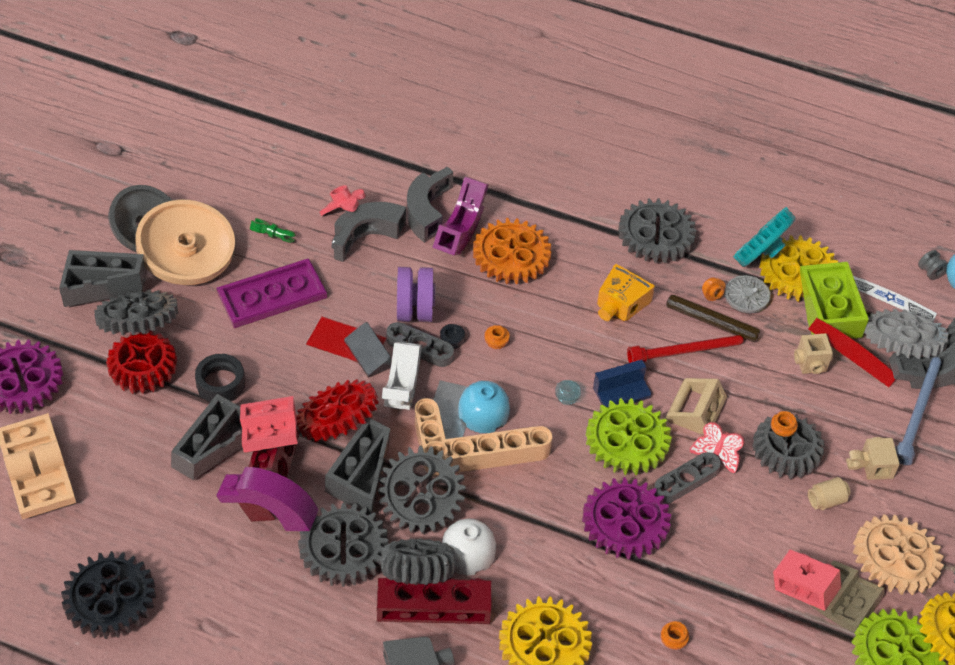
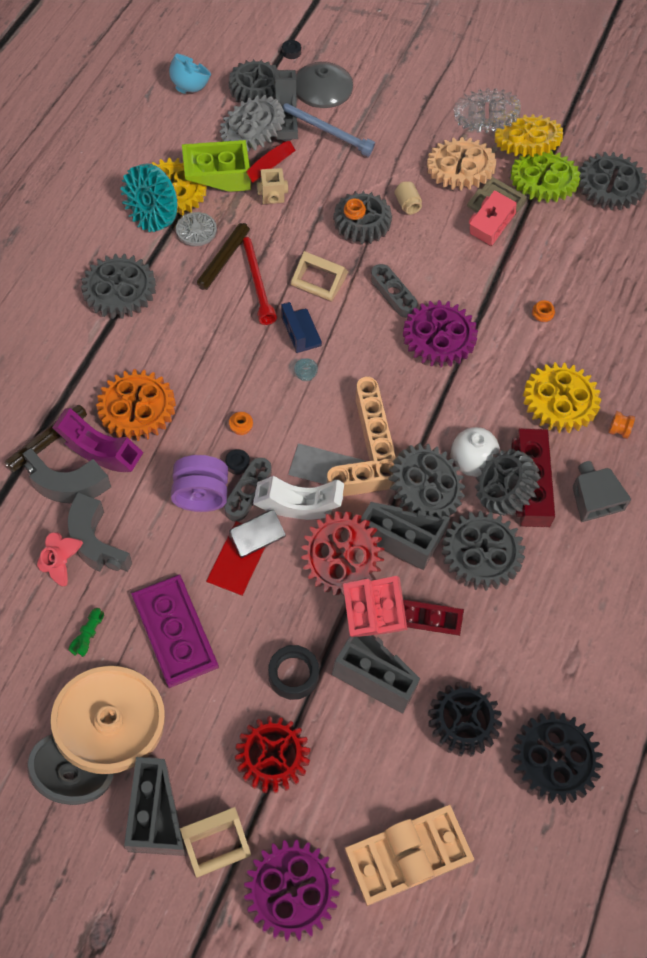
camera: 90 degrees left, 10 degrees up
(81, 338) = (209, 827): none -> tan tile
(136, 312) = (201, 787): dark grey gear -> none
(156, 525) = (472, 727): none -> black gear
(273, 492) = (456, 609): magenta arch -> none
(484, 407) = (325, 435): medium azure cylinder -> none
(490, 201) = (39, 443): none -> dark brown axle
(623, 294) = (196, 318): light orange torso -> none
(628, 436) = (339, 322): lime gear -> none
(713, 288) = (192, 250): orange plate -> none
(721, 444) = (365, 260): coral animal -> none
(876, 457) = (373, 163): tan brick -> none
(892, 298) = (204, 131): white sticker -> none
(933, 265) = (173, 98): dark grey wheel -> none

